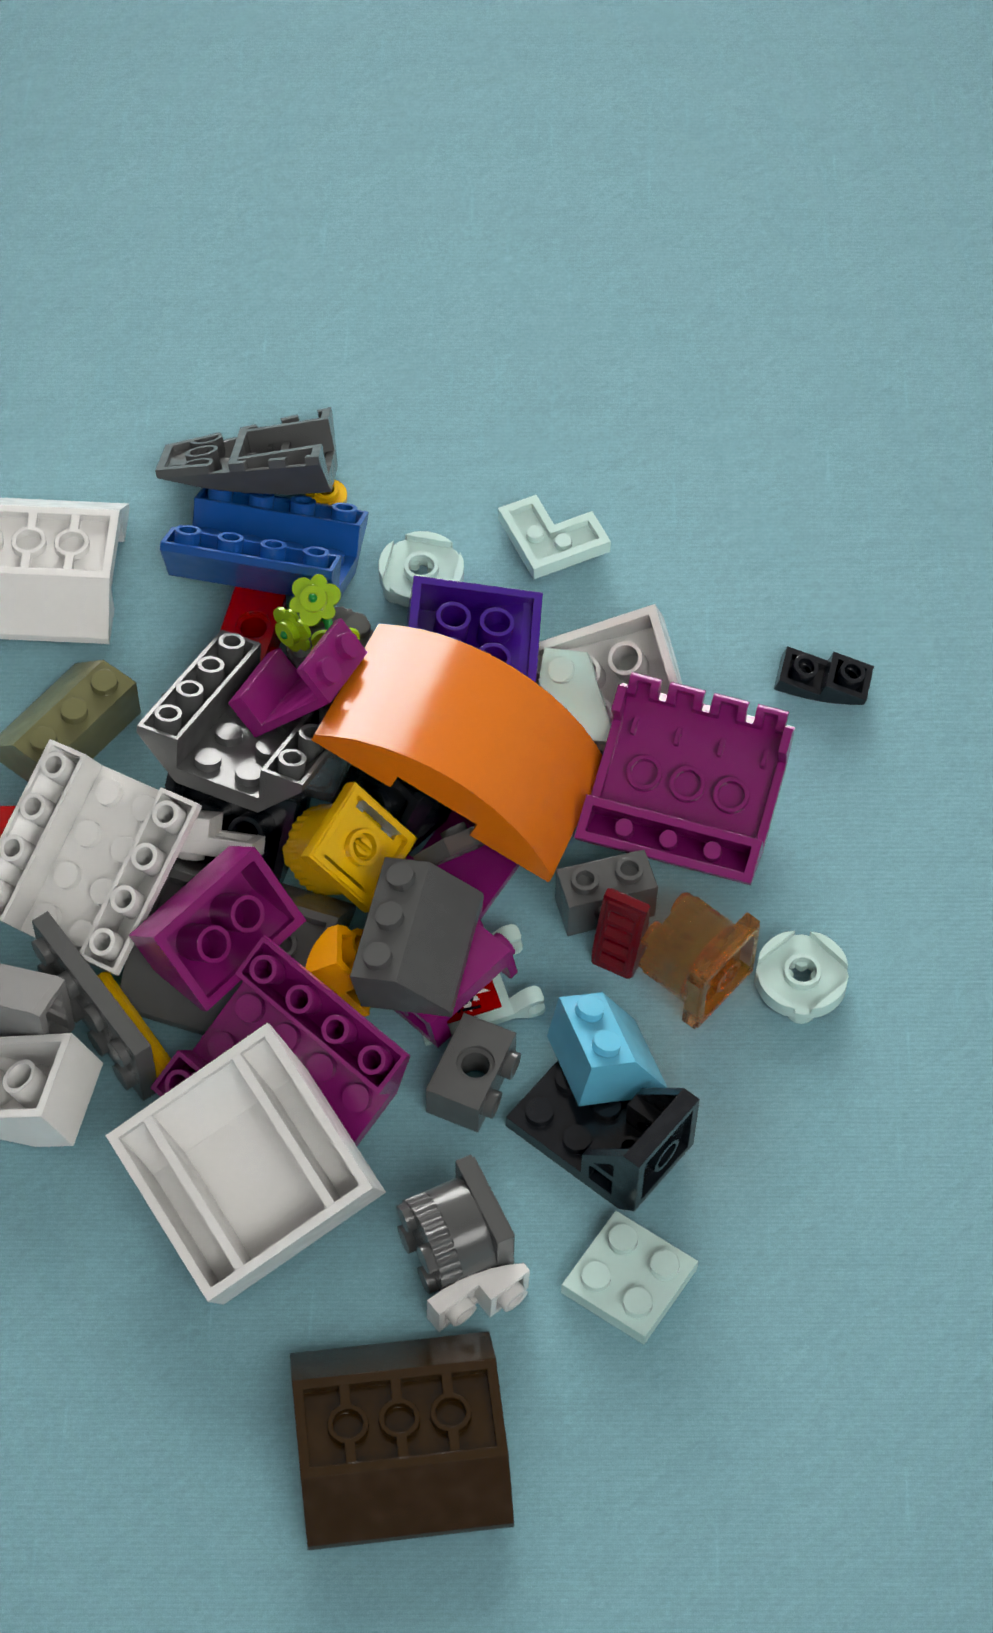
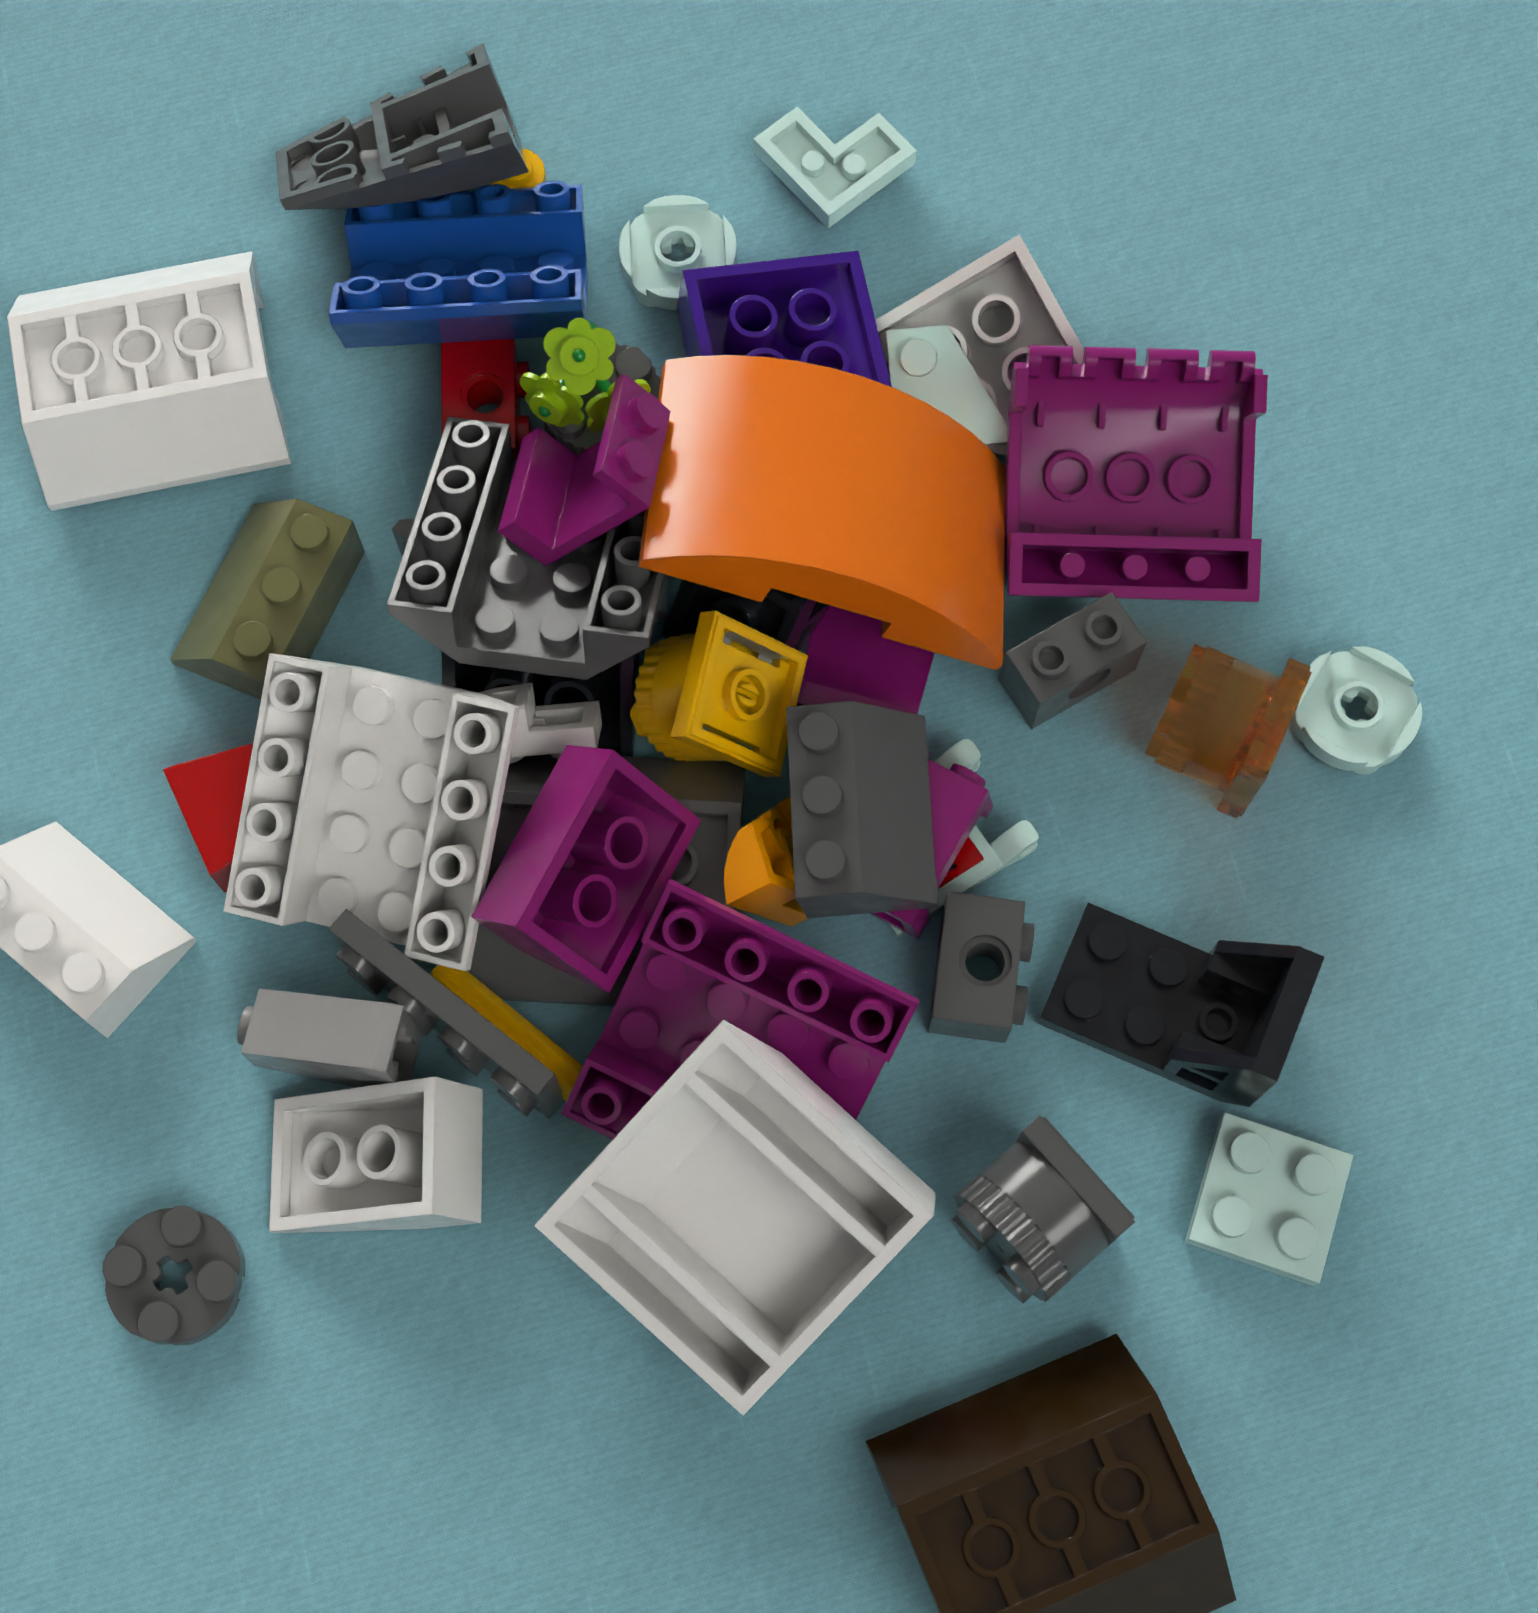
camera: 15 degrees left, 15 degrees up
(454, 843) = (856, 658): dark grey plate -> none
(491, 1289) = (1105, 1278): white slope -> none
(601, 1050) = (1144, 898): medium azure slope -> none
(617, 937) = (1115, 719): dark red slope -> none
(830, 681) = (1259, 278): black slope -> none

